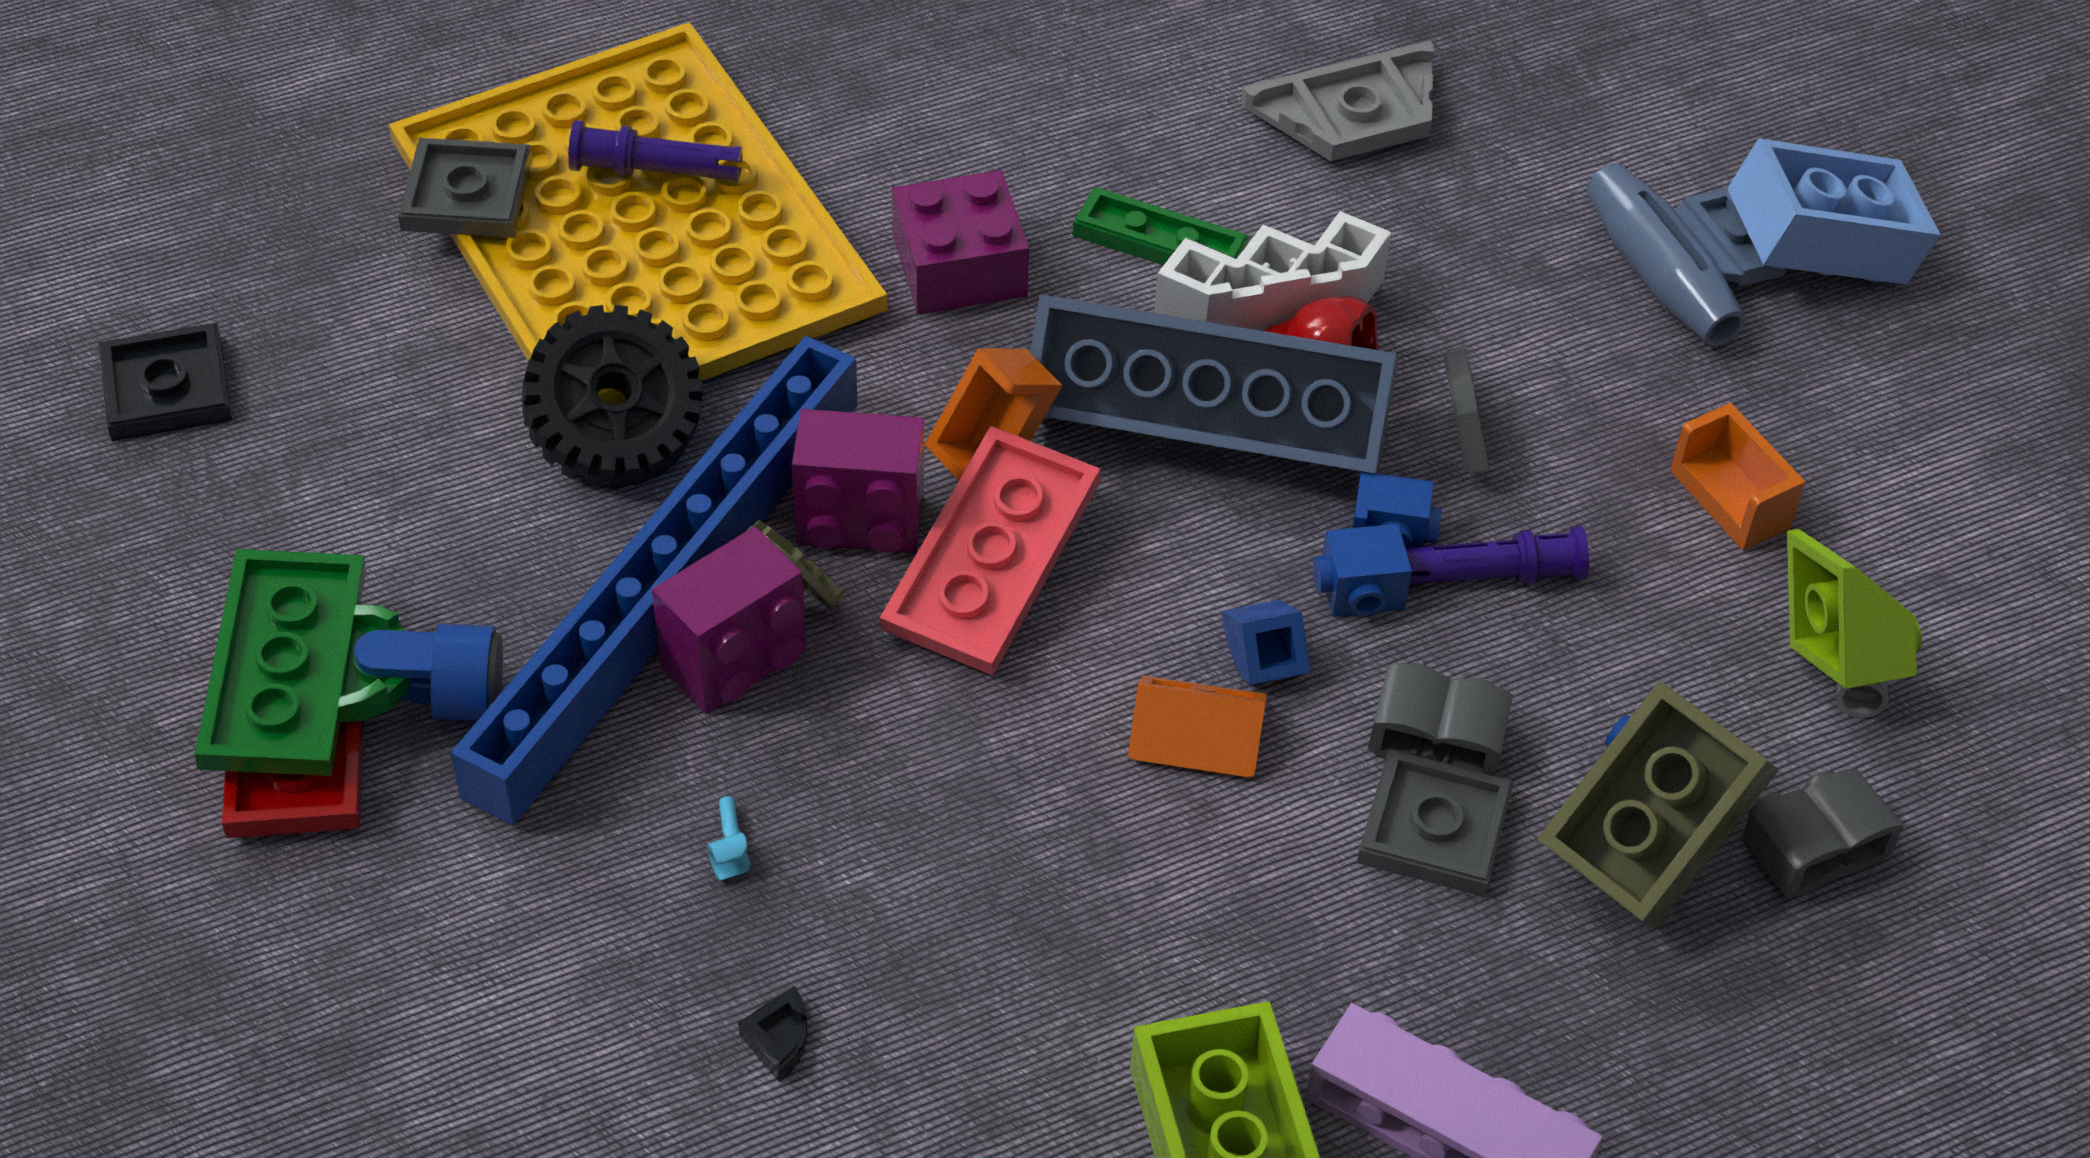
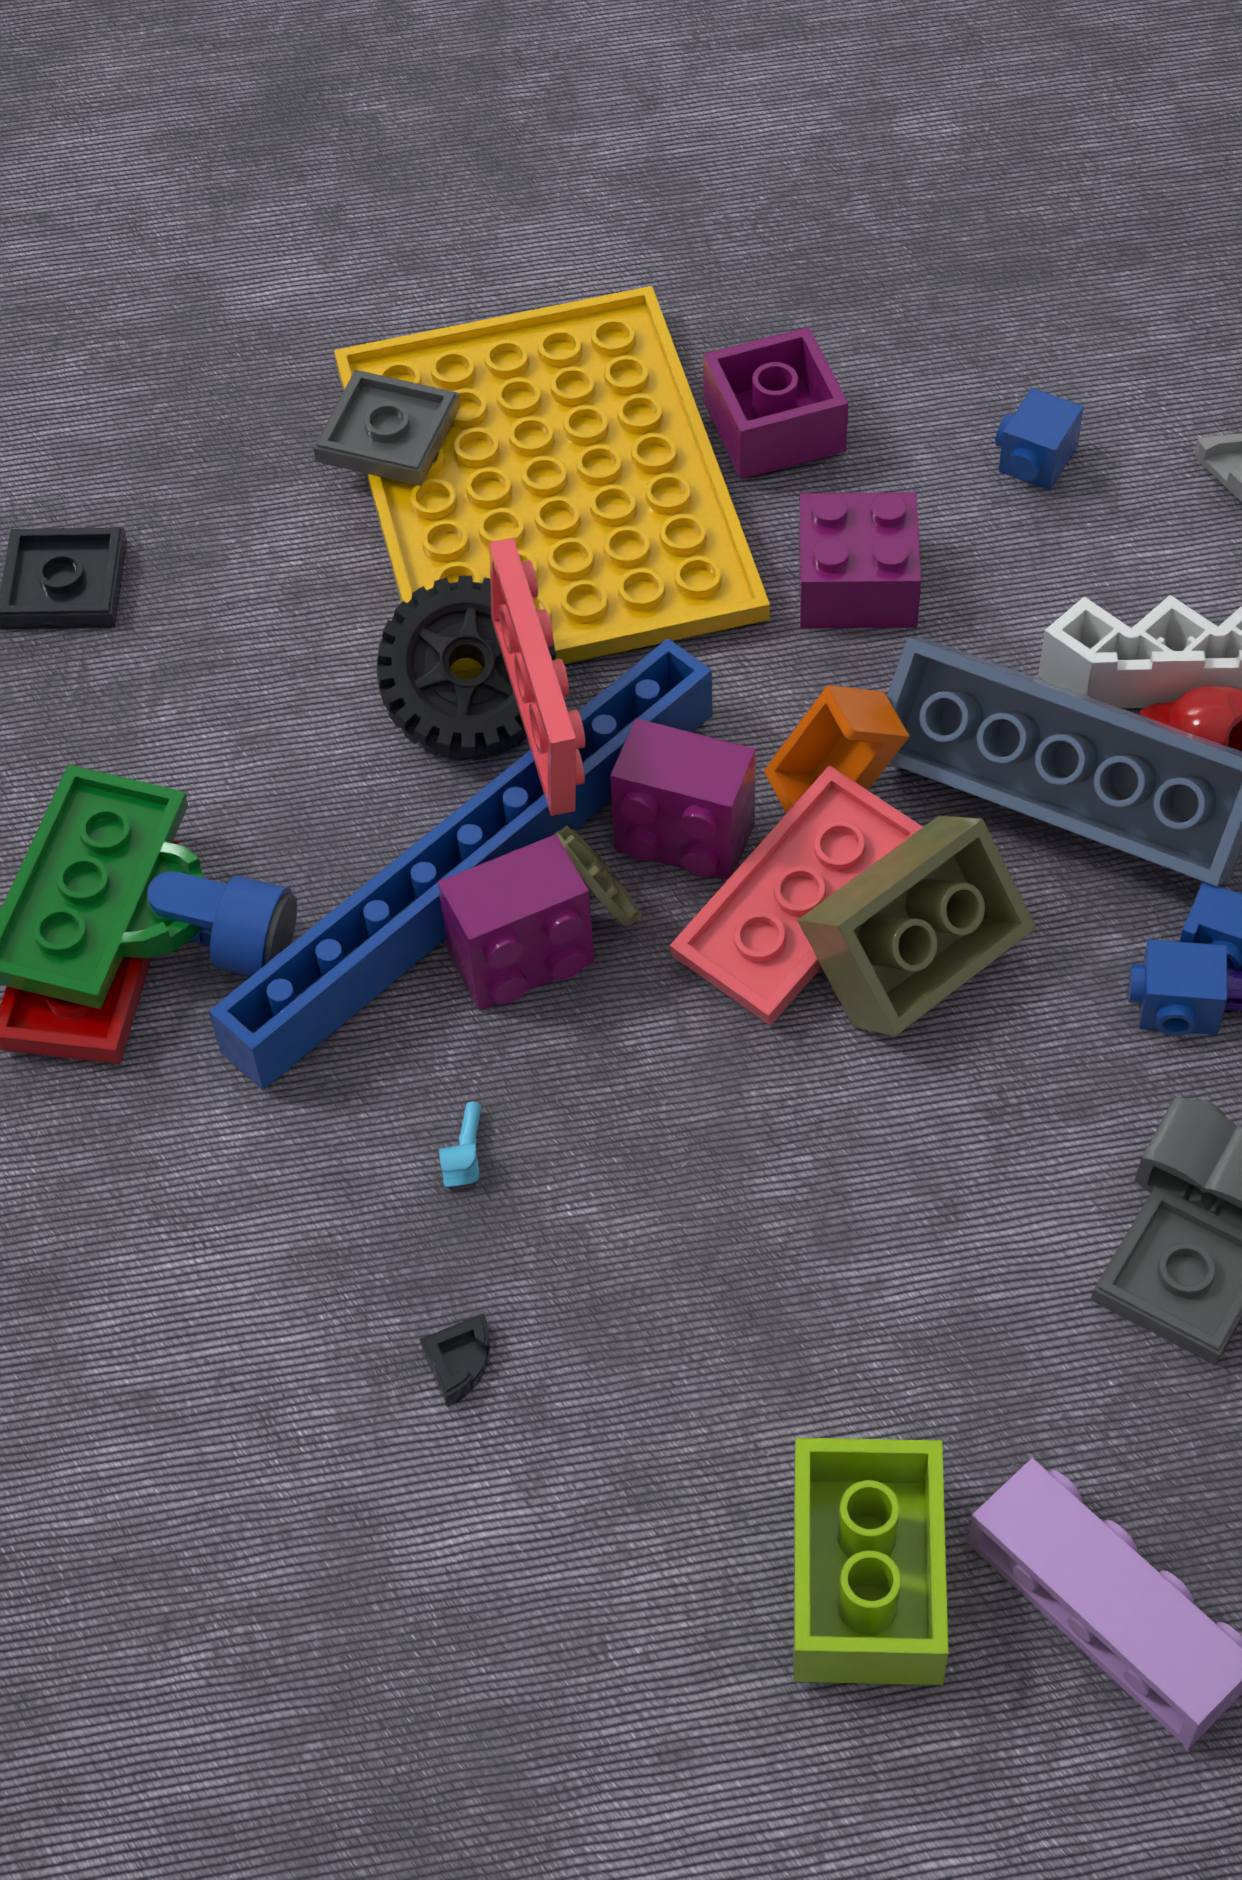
camera: 20 degrees right, 5 degrees up
(627, 151) = (550, 415): dark purple pin -> none
(697, 383) = (535, 677): none -> coral plate
(841, 111) = (775, 402): none -> magenta brick
(1096, 108) = (1039, 438): none -> blue brick
(1112, 554) = (917, 924): none -> olive brick
(1148, 229) = (1062, 577): green tile -> none
(1197, 726) = (962, 1120): orange panel -> none
(1266, 641) = (1058, 1044): blue brick -> none

